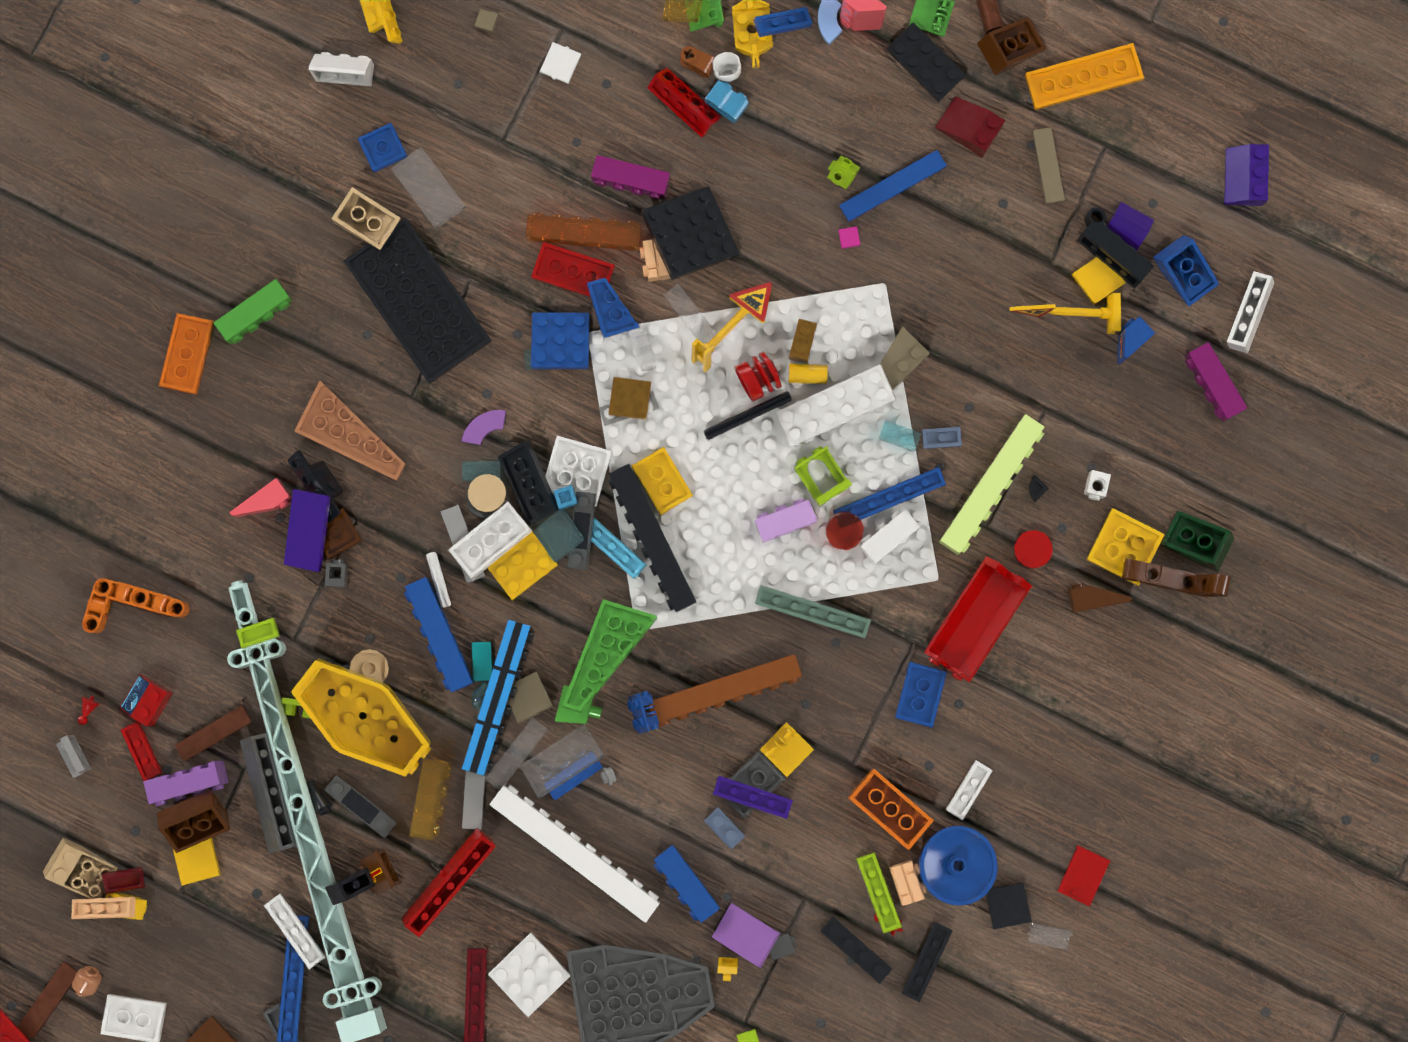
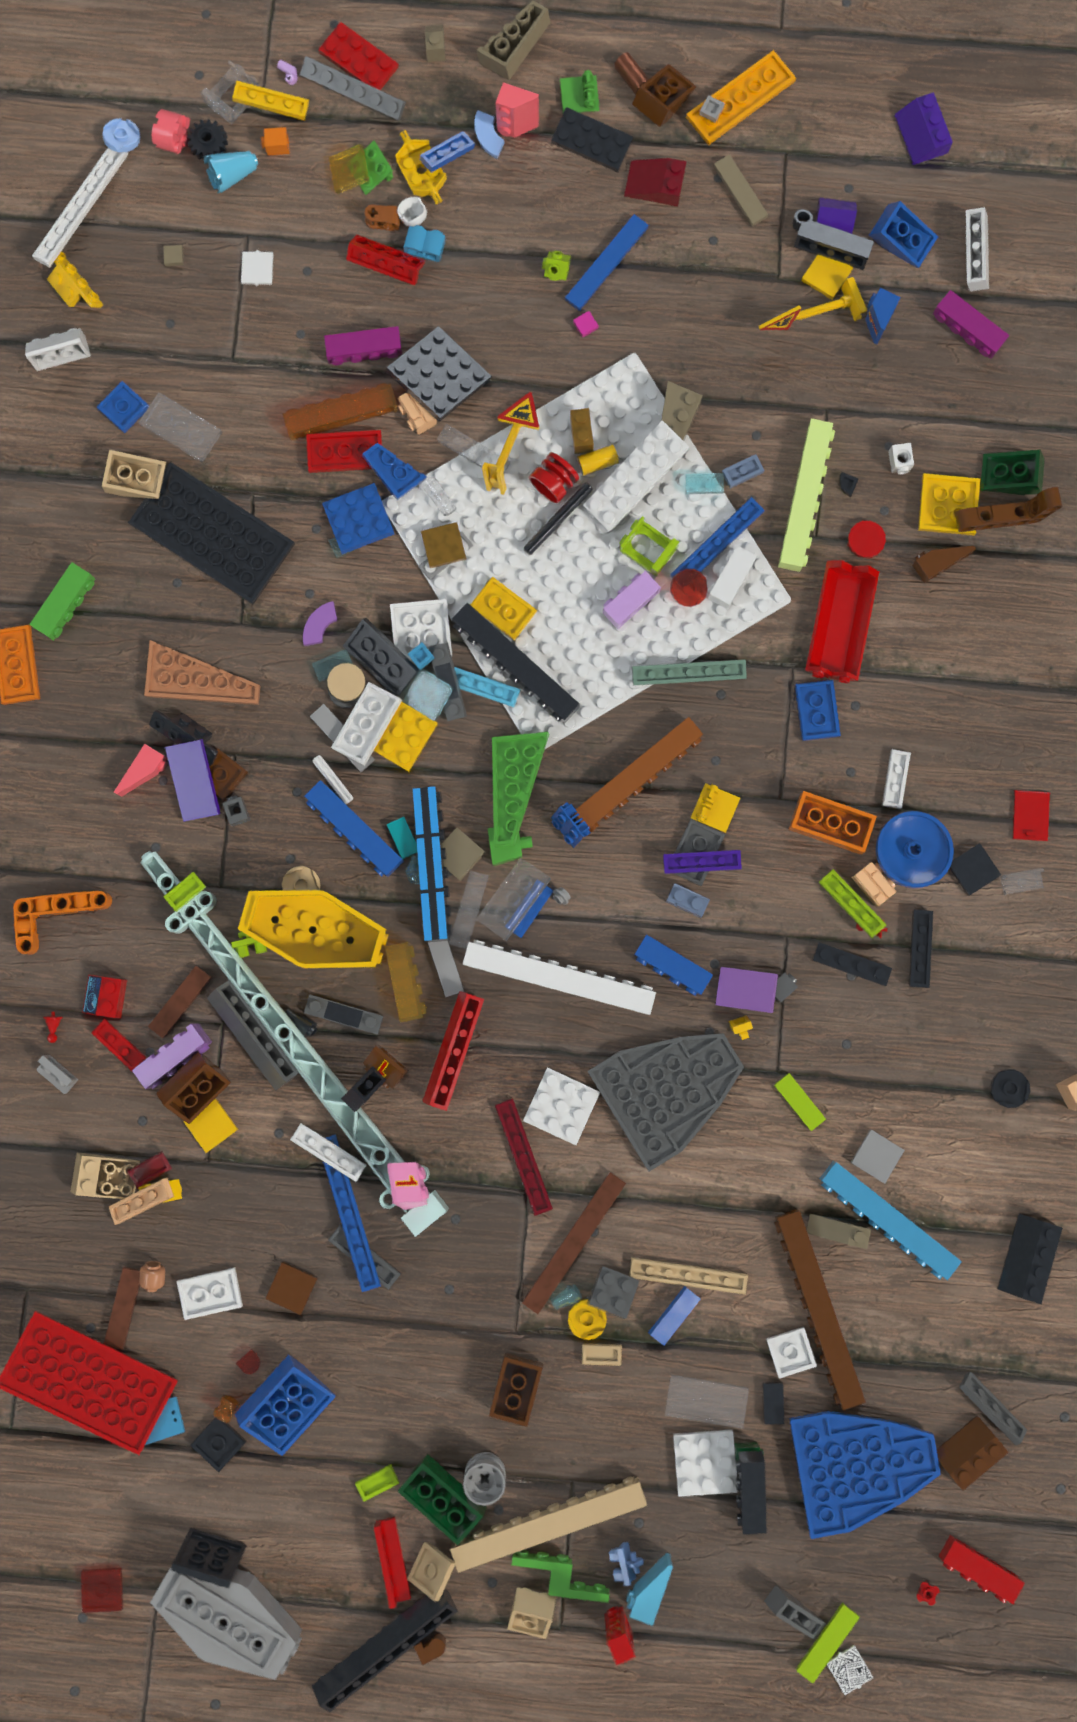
camera: 20 degrees left, 0 degrees up
(353, 994) = (408, 1185): none -> bright pink slope
(1050, 78) = (712, 109): none -> light grey plate

